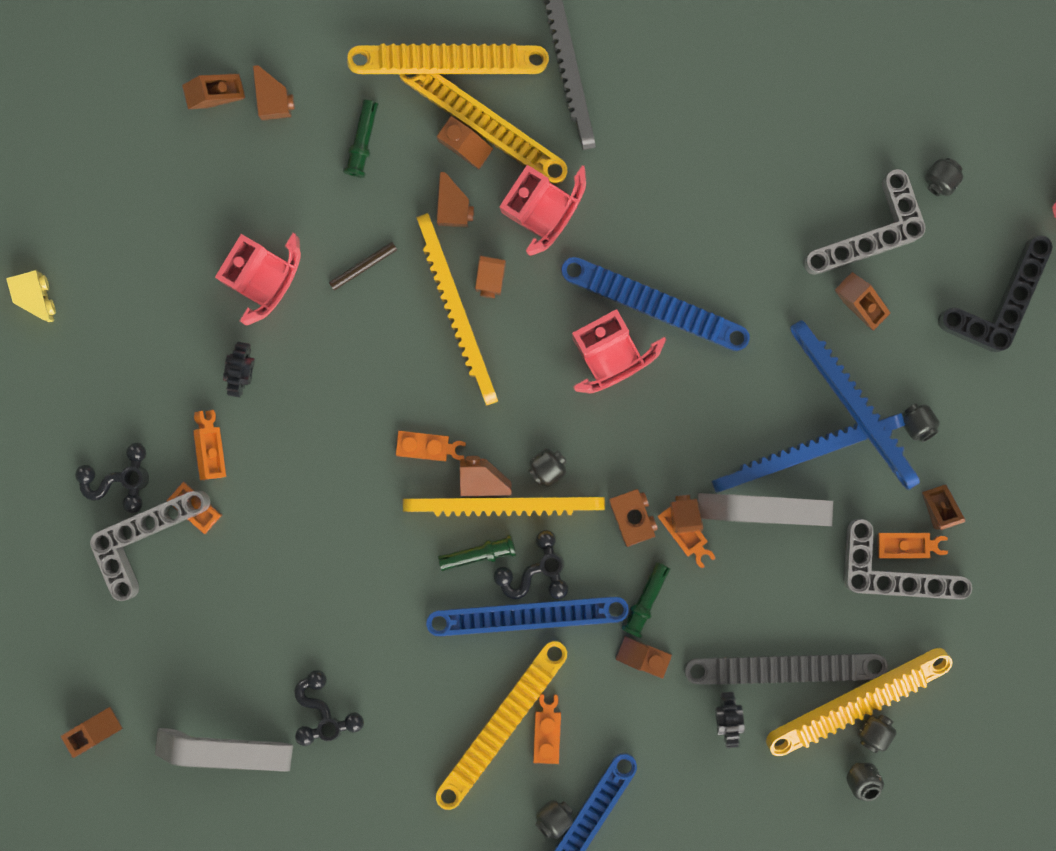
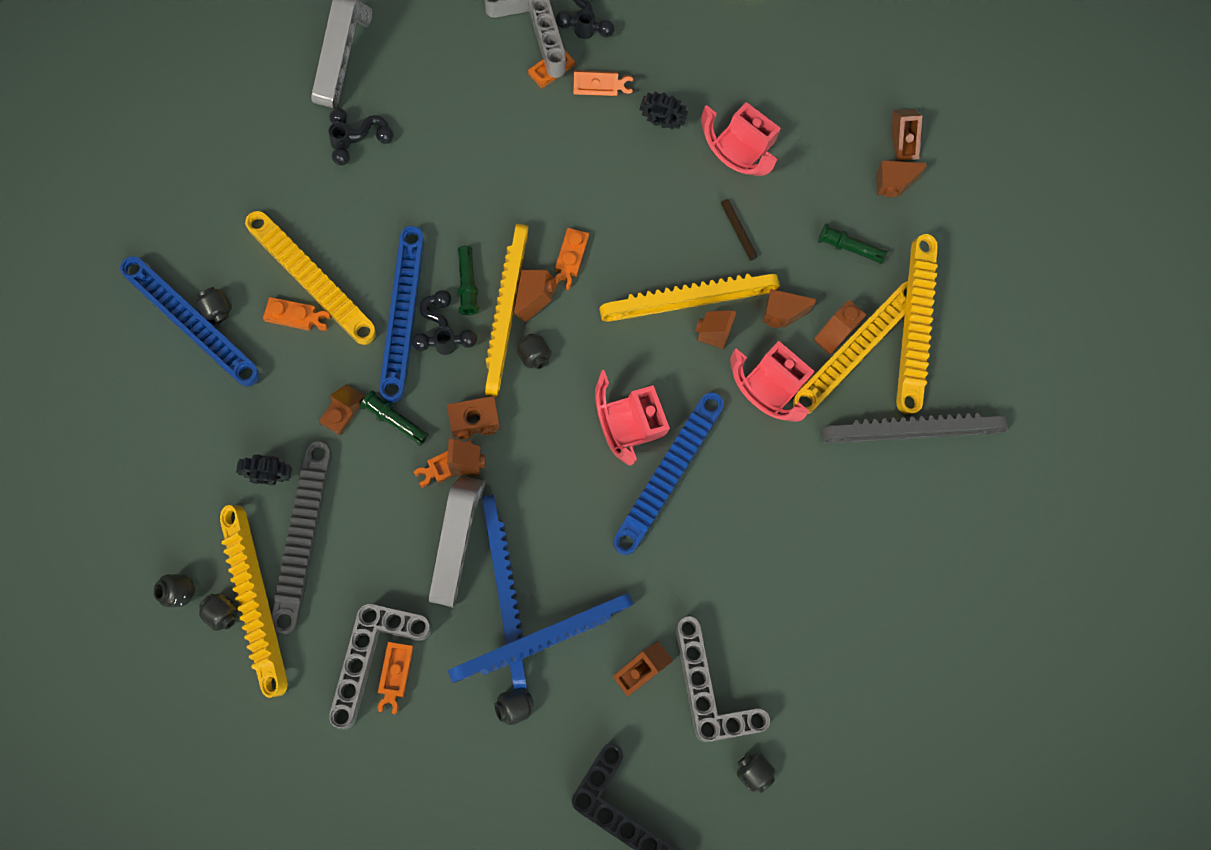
camera: 90 degrees right, 15 degrees down
(942, 508) = (425, 714): dark orange slope -> none

